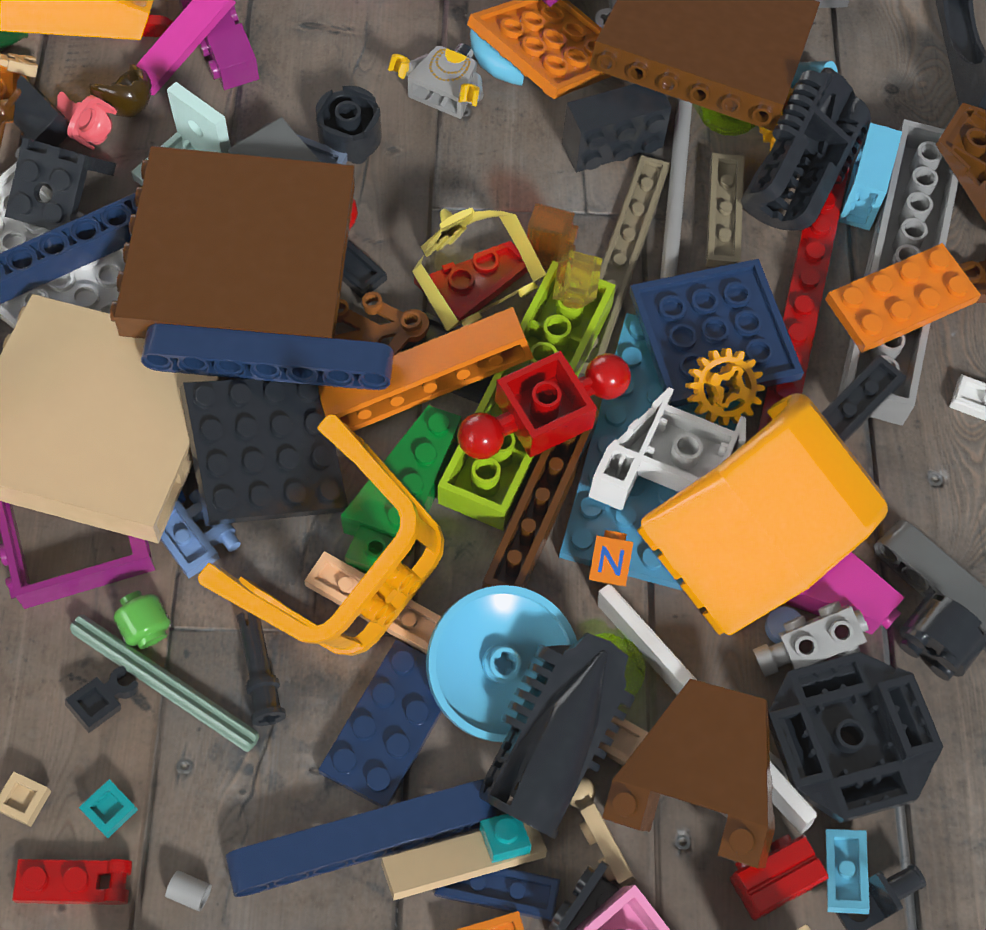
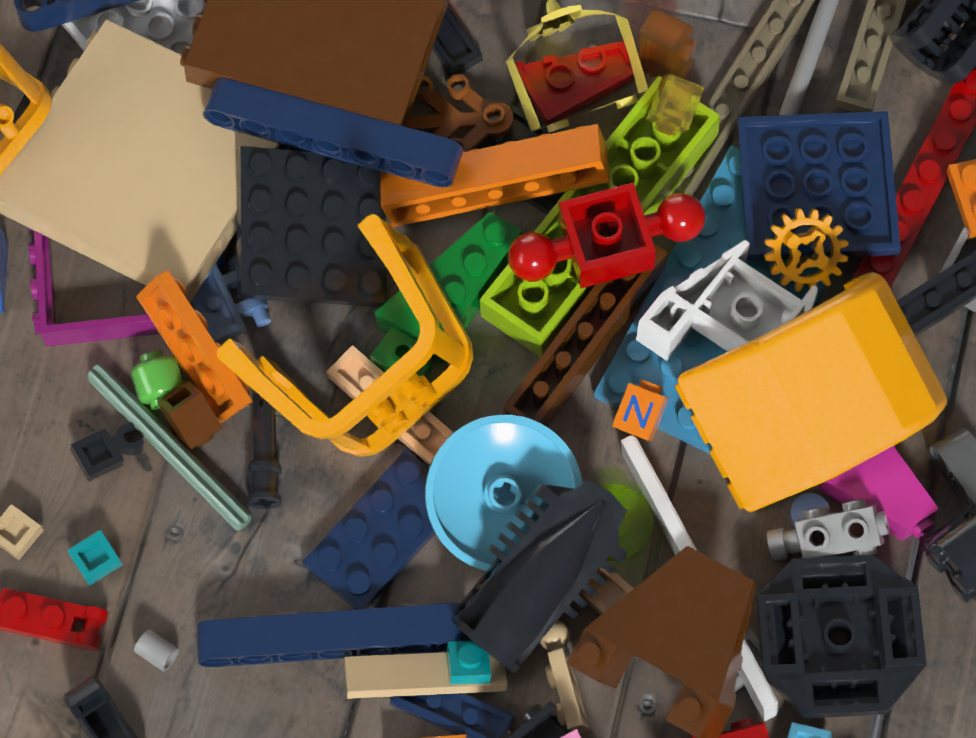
camera: 20 degrees right, 5 degrees up
(171, 579) = (193, 346): none -> orange plate
(179, 647) = (190, 415): none -> reddish brown brick

